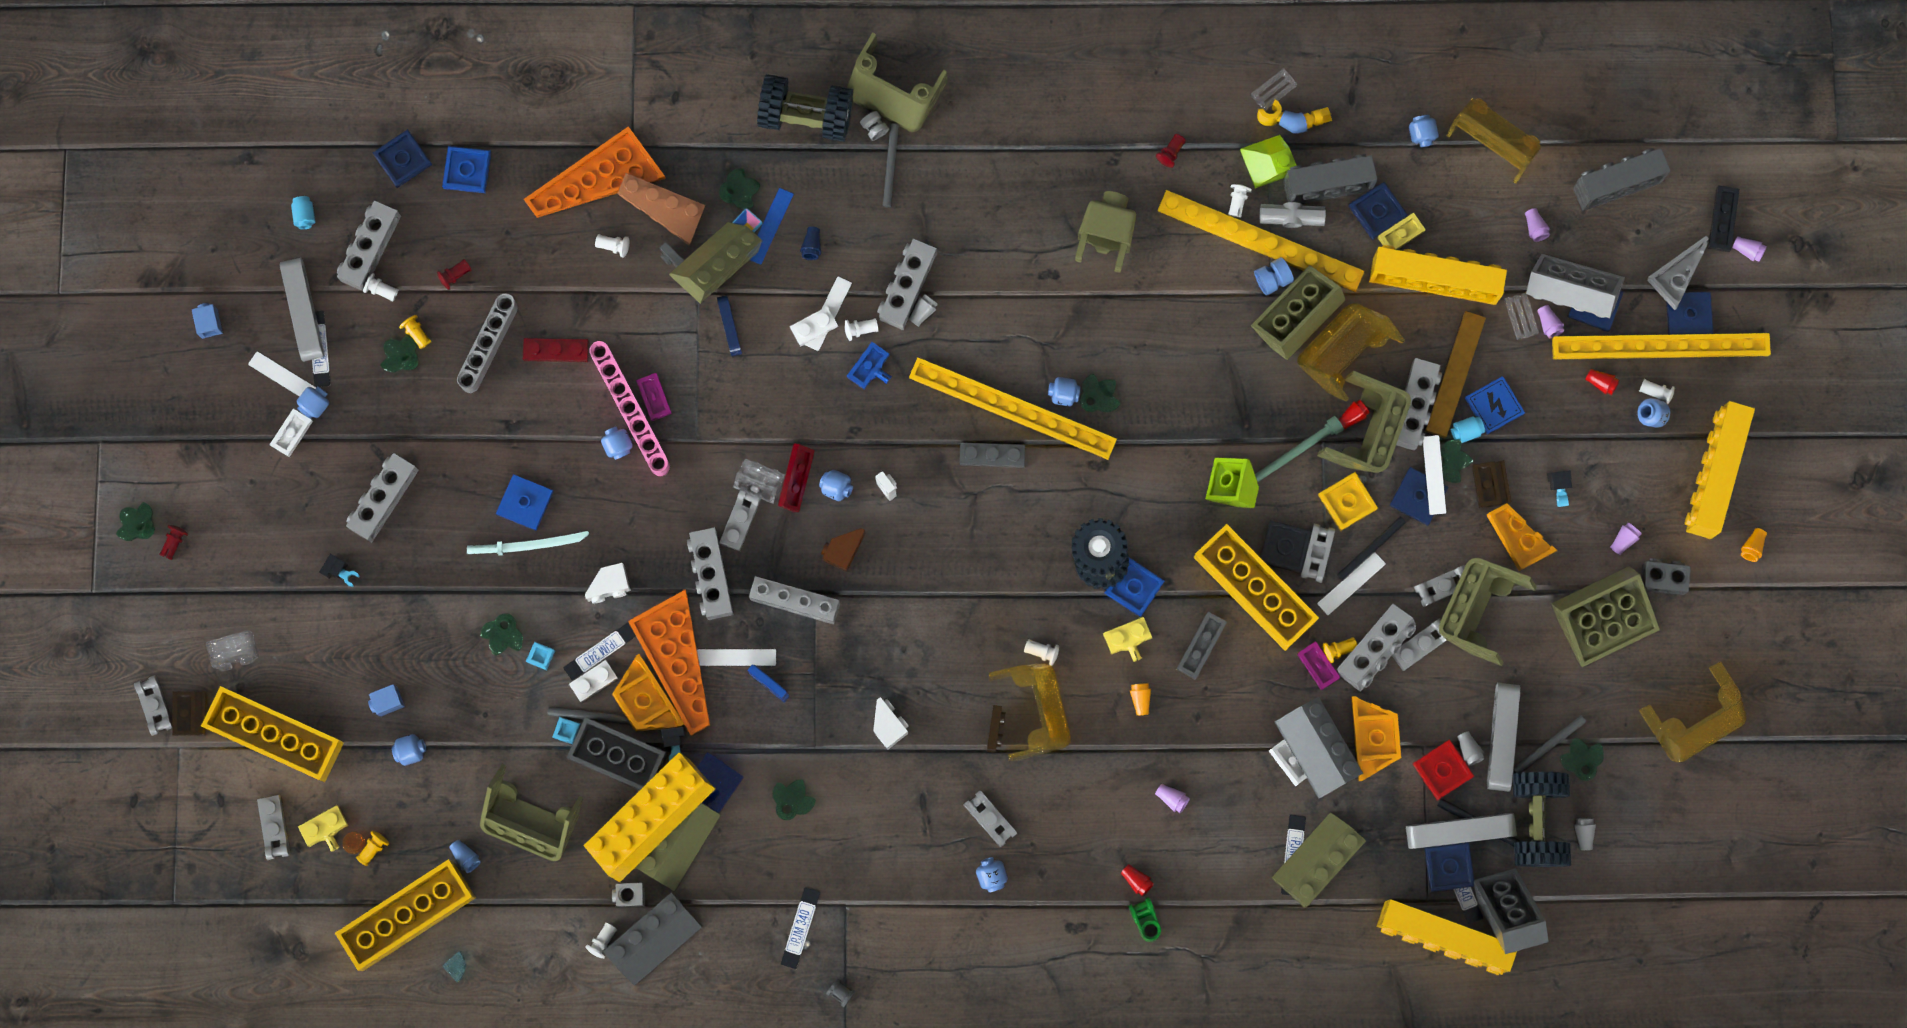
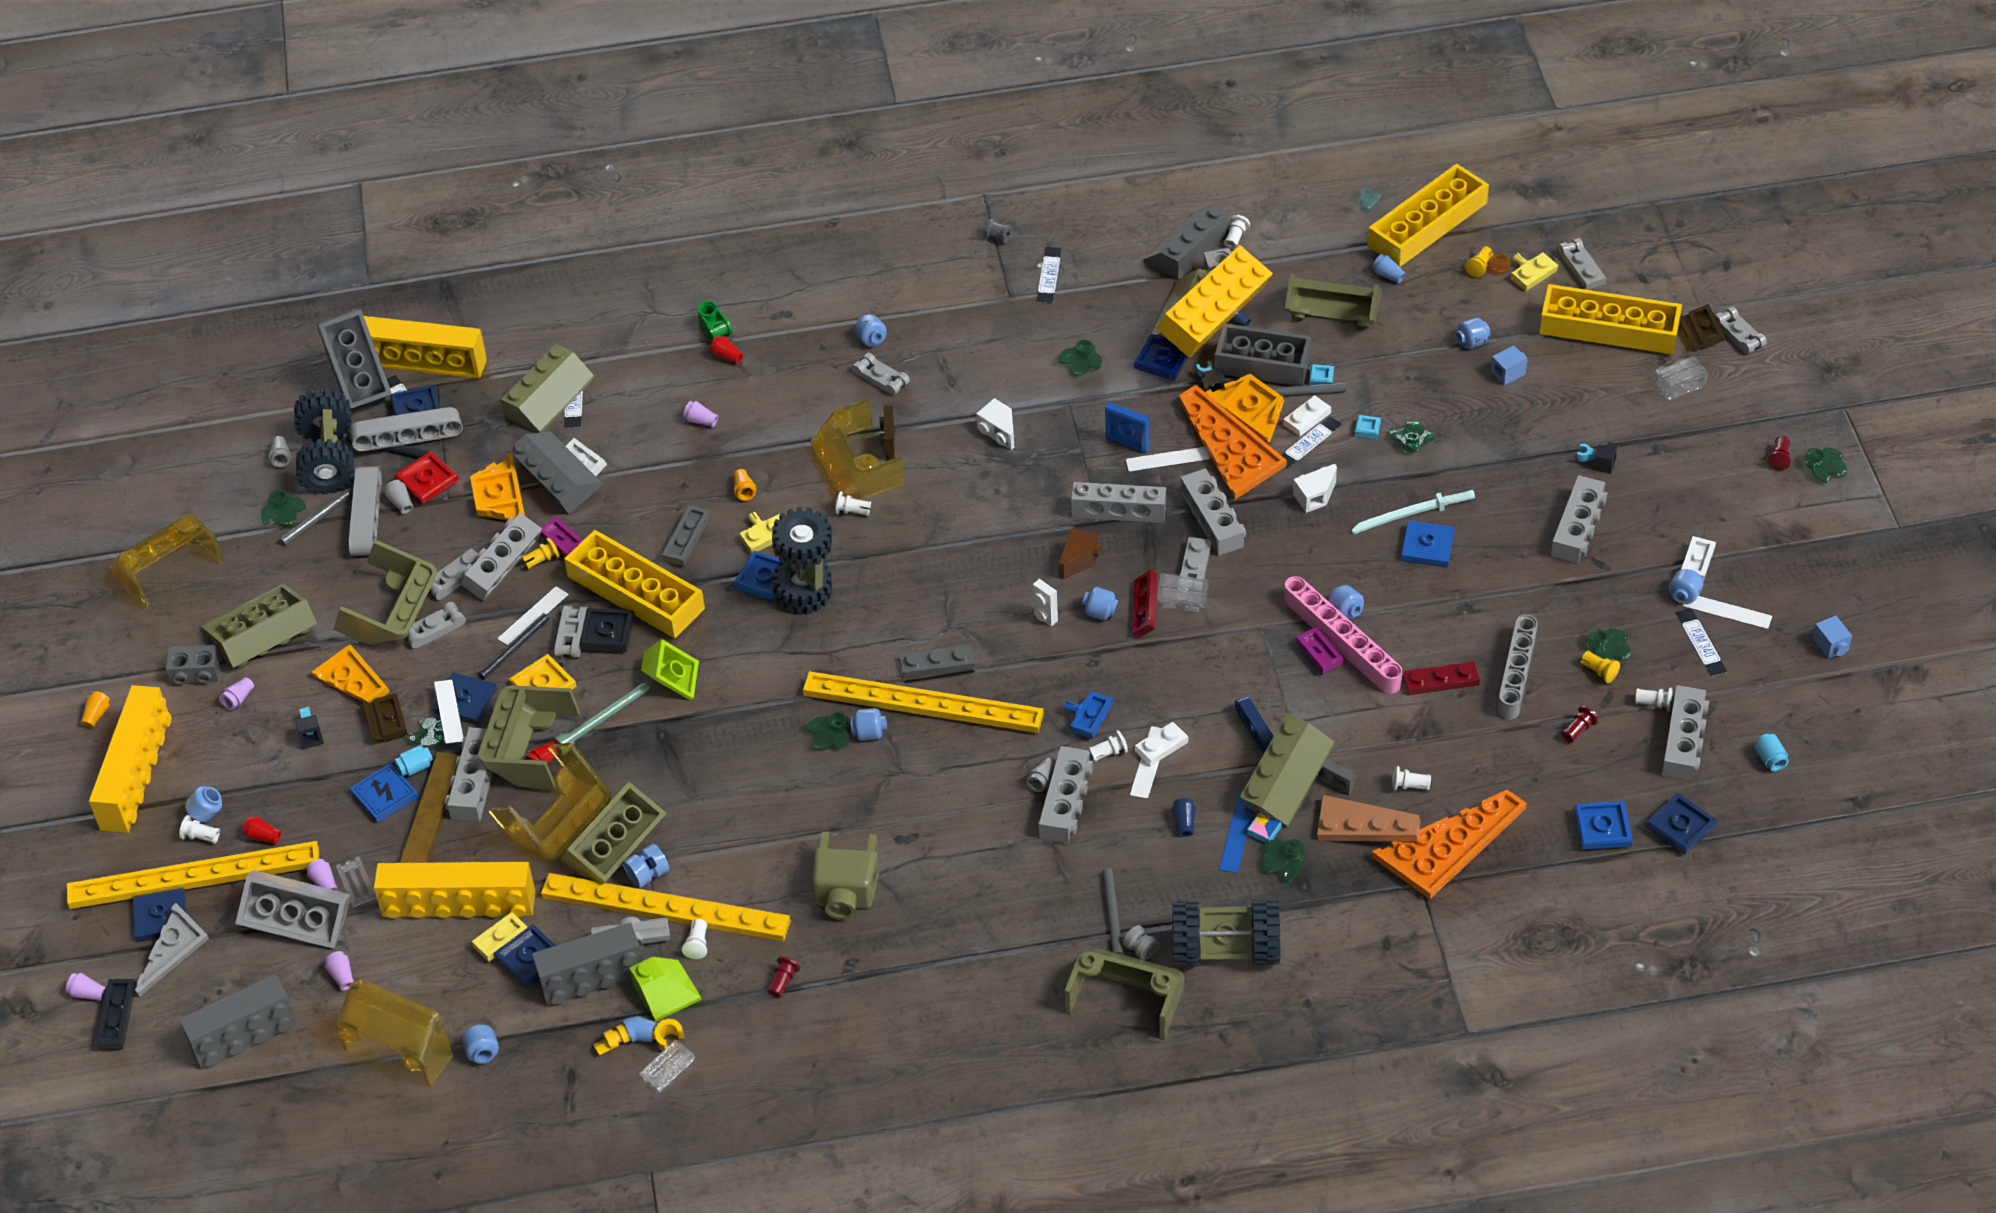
camera: 170 degrees right, 30 degrees down
(302, 309) = (1734, 665): light grey beam -> none

